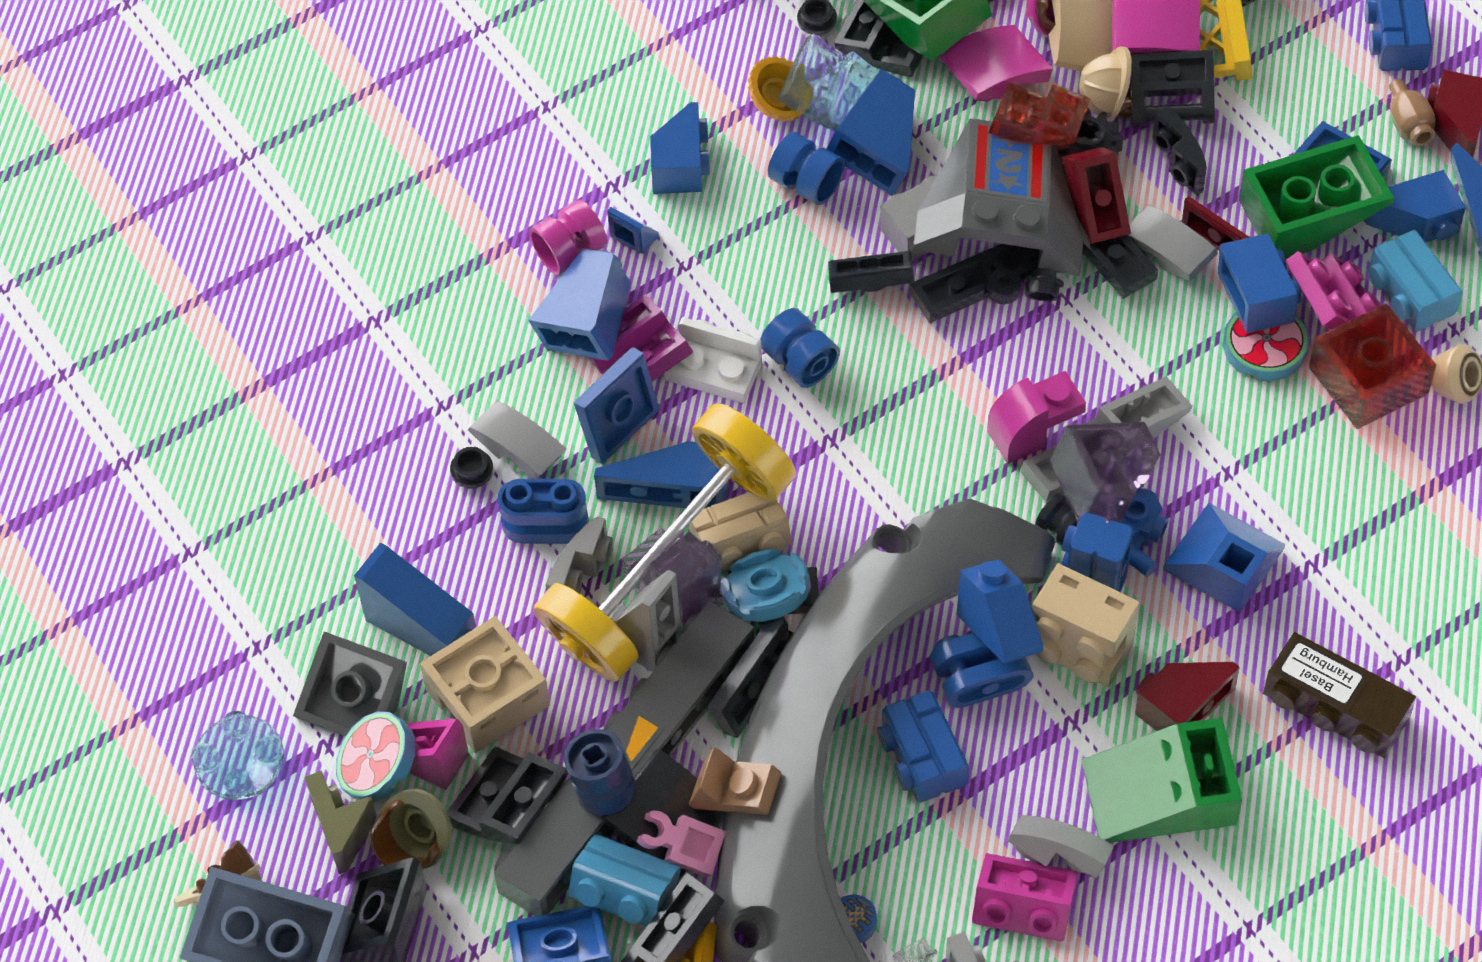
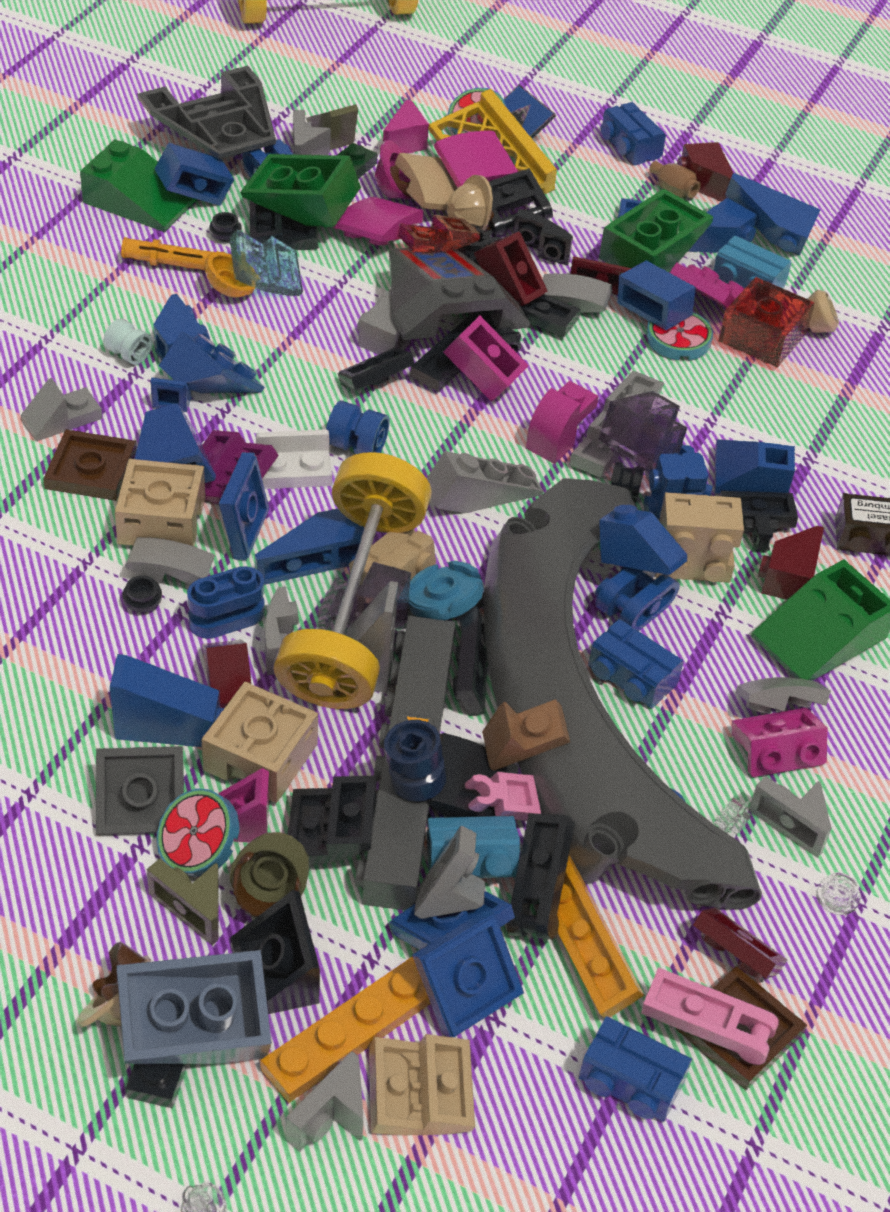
camera: 35 degrees left, 10 degrees down
(238, 756) = (66, 883): clear light blue dish -> none
(502, 288) = (89, 464): none -> reddish brown tile
(505, 213) = (54, 412): none -> light grey slope
(506, 587) = (226, 667): none -> dark red slope
(537, 369) = (159, 502): none -> tan piece
(562, 239) = (125, 408): dark pink wheel -> none
(573, 914) = (450, 882): none -> light grey slope
(622, 147) = (124, 339): none -> light aqua wheel
(687, 208) = (208, 367): none -> blue slope
(696, 19) = (157, 253): none -> light orange pin
(810, 170) = (284, 316): blue wheel -> none
(878, 133) = (325, 282): blue slope -> none
(898, 463) = (476, 483): none -> light grey slope
(990, 306) = (485, 358): none -> dark pink brick
(1191, 616) = (765, 514): none -> black hinge

